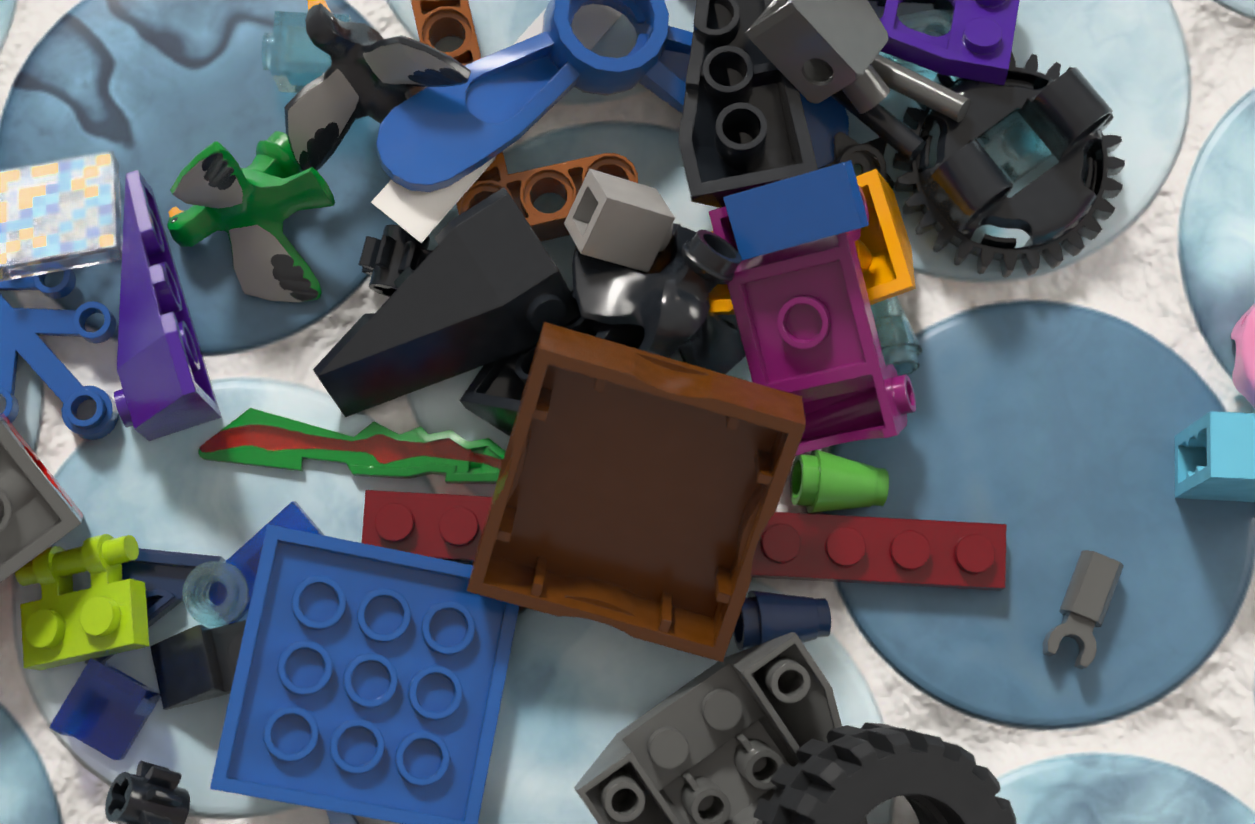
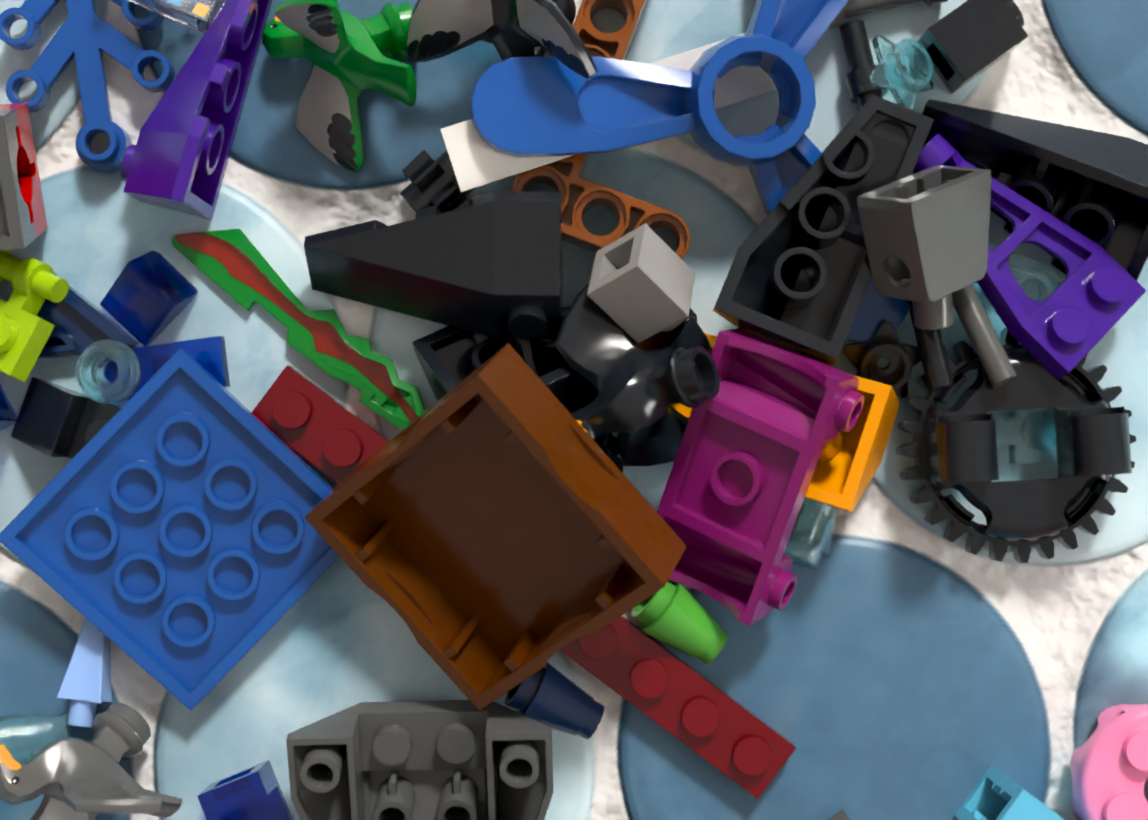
camera: 35 degrees right, 10 degrees up
(208, 514) = (148, 296): none -> clear blue slope
(796, 210) = (791, 387): blue tile -> none

